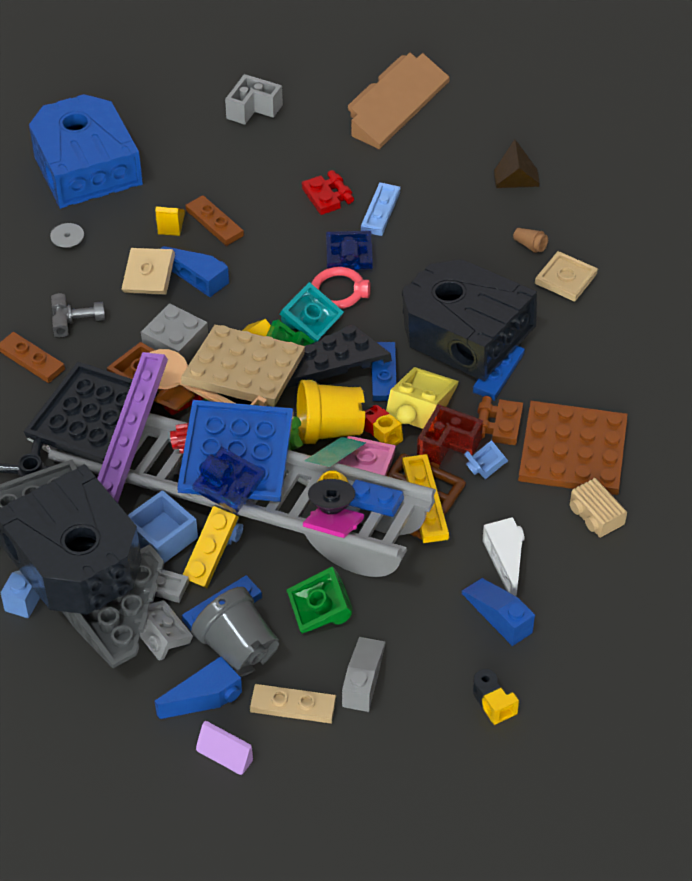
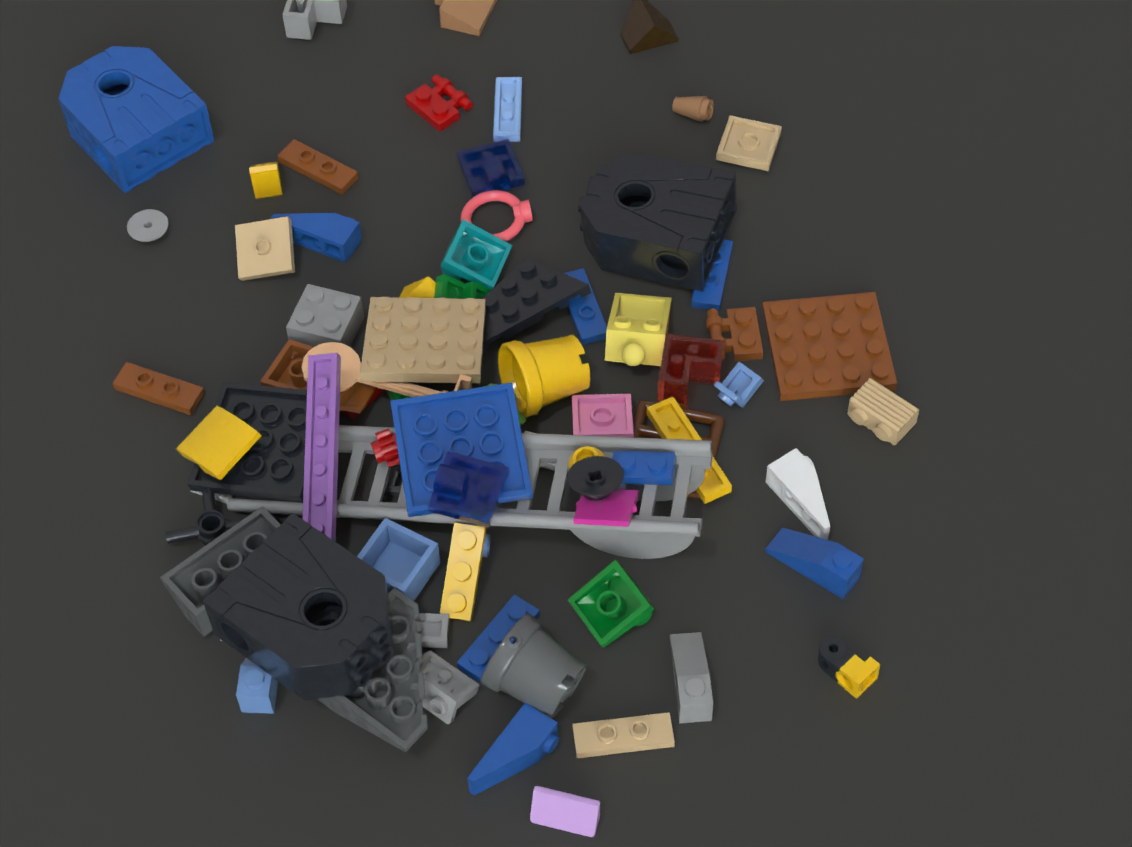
camera: 15 degrees left, 5 degrees up
(56, 404) = (218, 442): none -> yellow slope
(64, 314) = (182, 325): flat silver bar -> none
(335, 452) = (572, 421): teal sticker -> none
(383, 426) = (608, 373): yellow leg -> none

